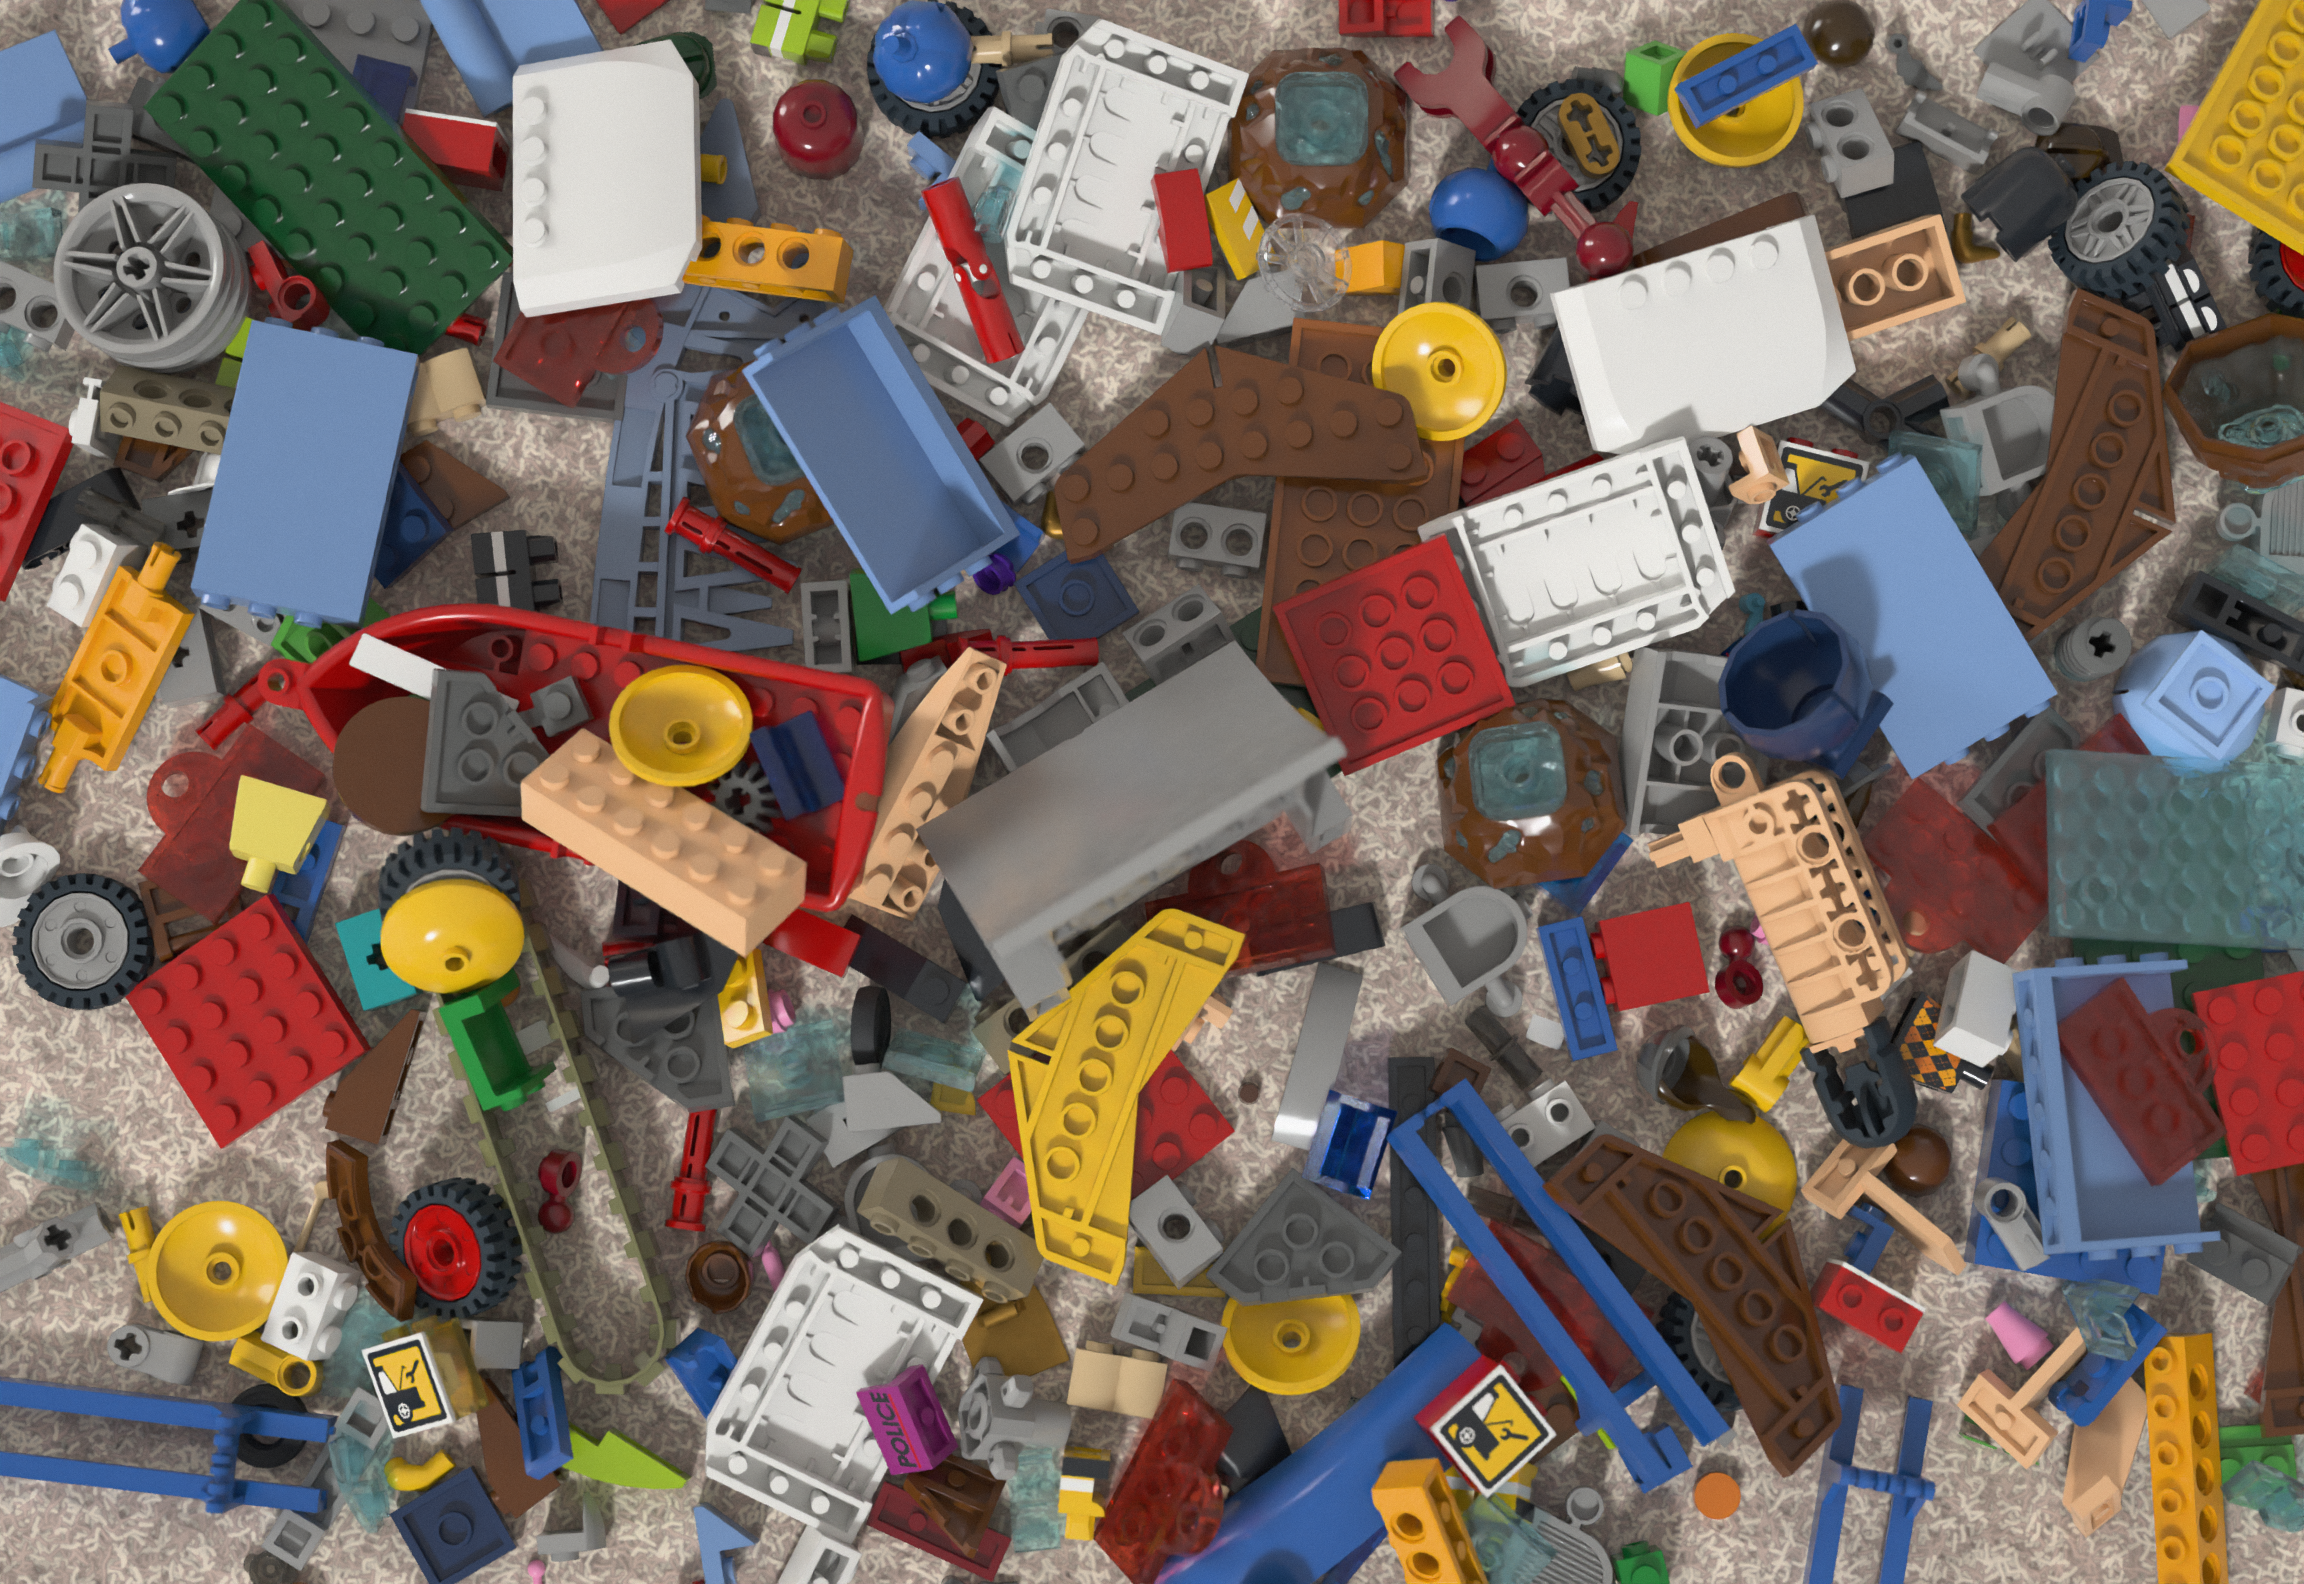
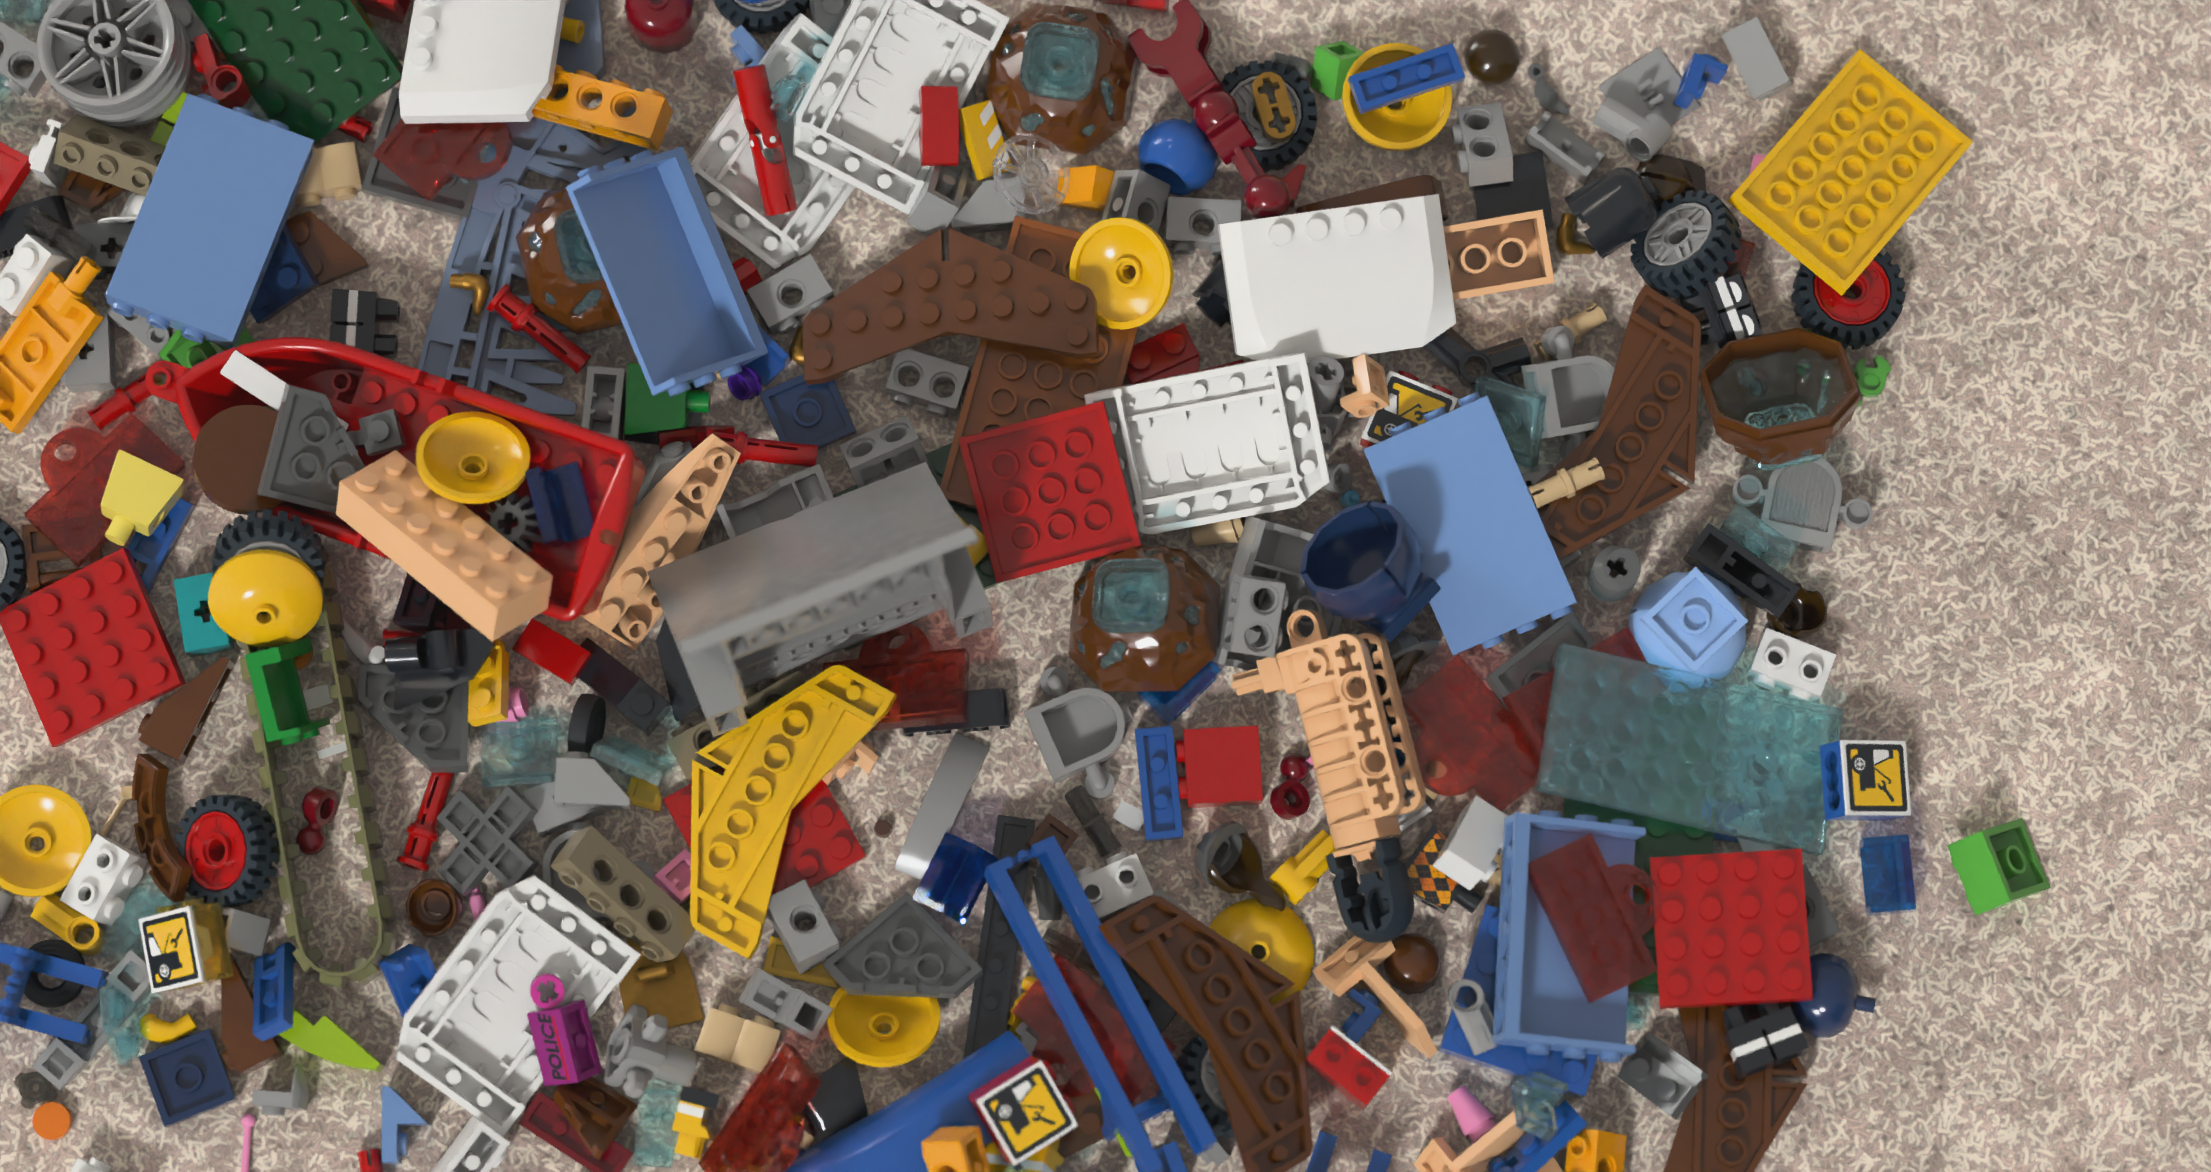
camera: 10 degrees right, 5 degrees down
(644, 500) = (475, 283): none -> pearl gold animal
(863, 1368) = (558, 988): none -> dark pink bush
(1657, 772) = (1243, 615): none -> light grey brick
(1742, 579) = (1345, 478): none -> light grey hinge
(2025, 548) = (1566, 482): none -> tan pin

